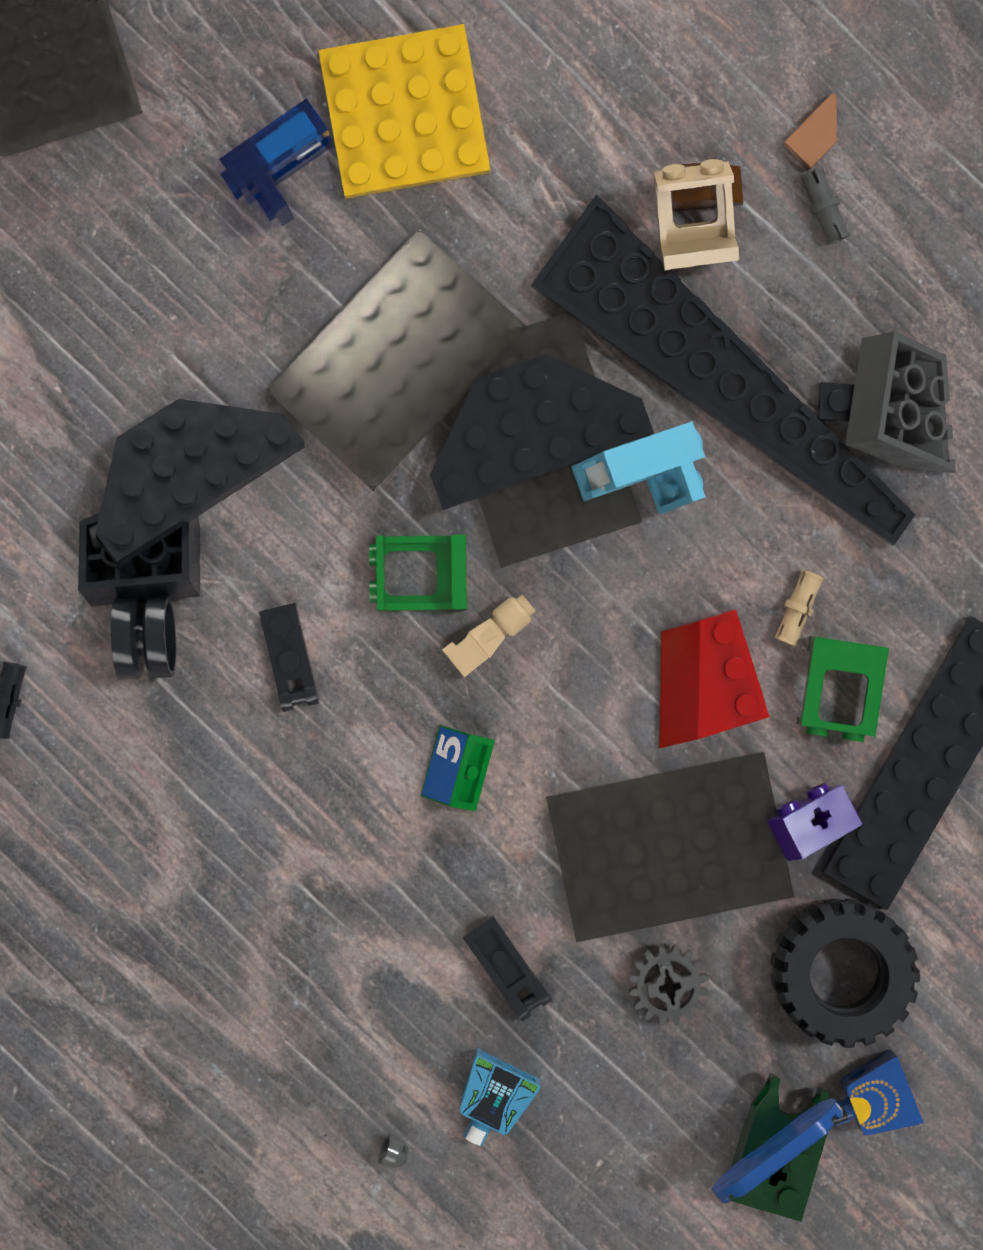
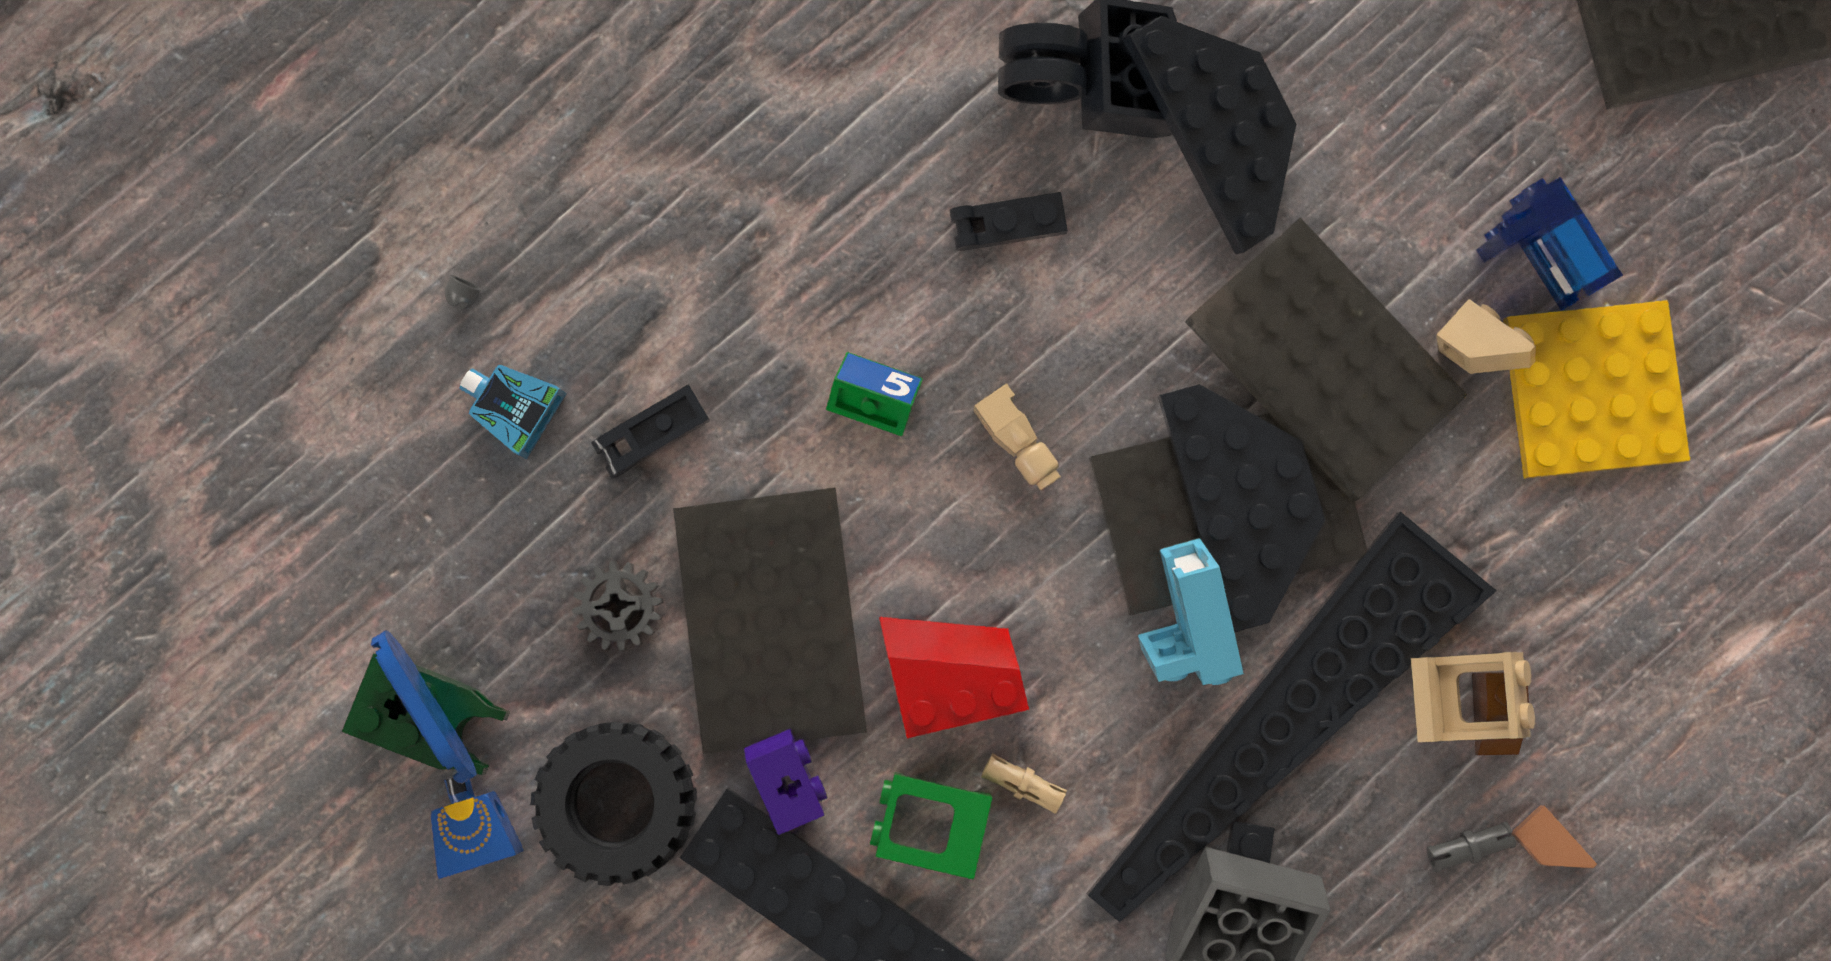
camera: 90 degrees right, 5 degrees down
(372, 218) = (1483, 343): none -> tan slope
(451, 572) = (1088, 402): green window -> none

